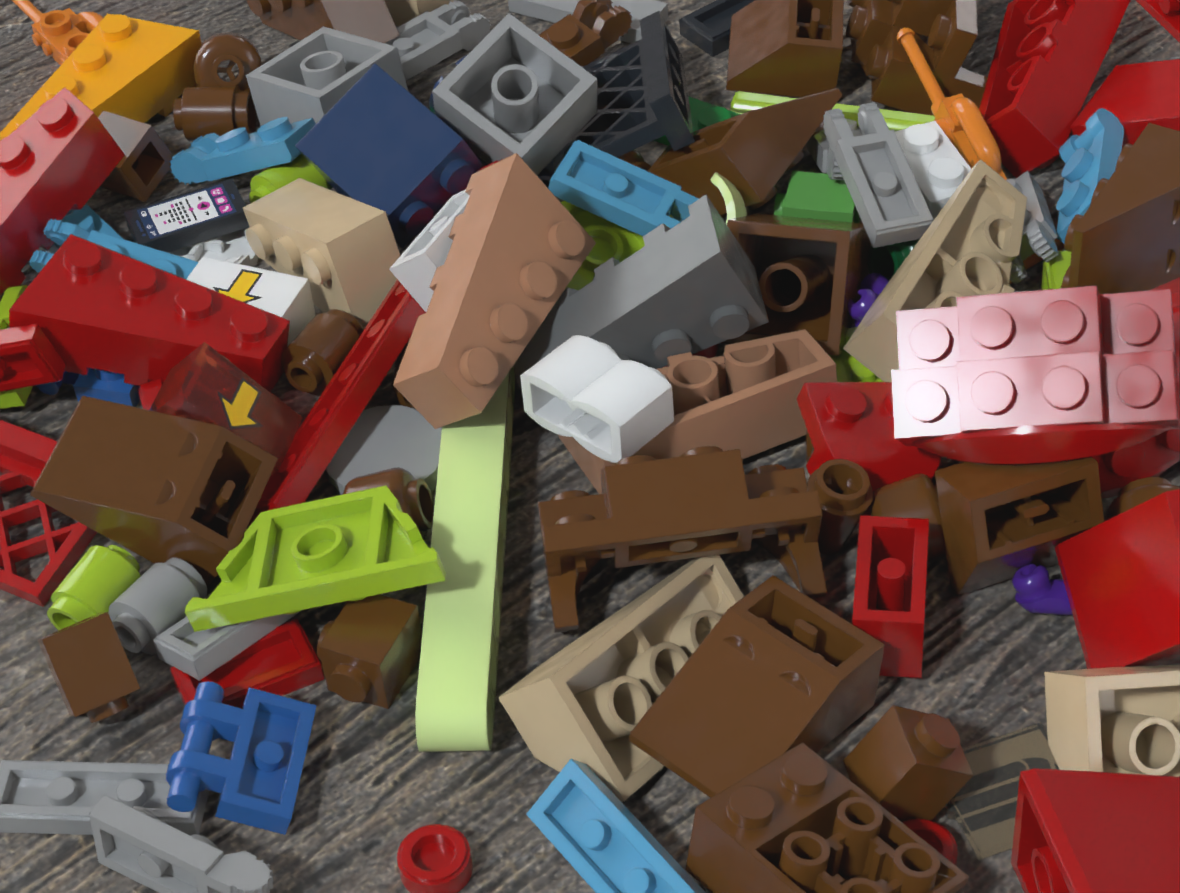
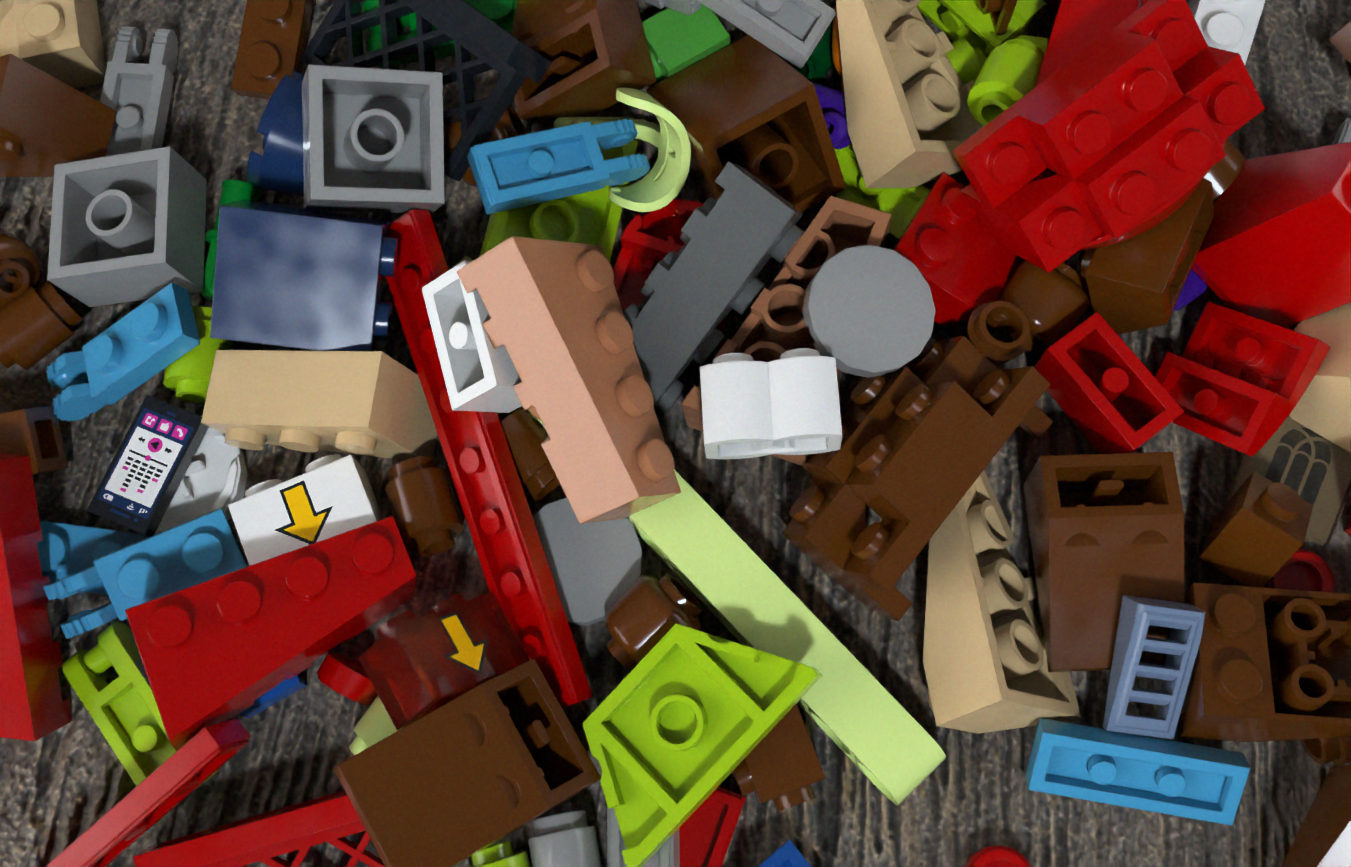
camera: 45 degrees left, 30 degrees up
(685, 759) = (1180, 650): none -> sand blue slope
(743, 398) = (869, 310): none -> light grey tile
(1037, 653) = (1239, 377): none -> red slope

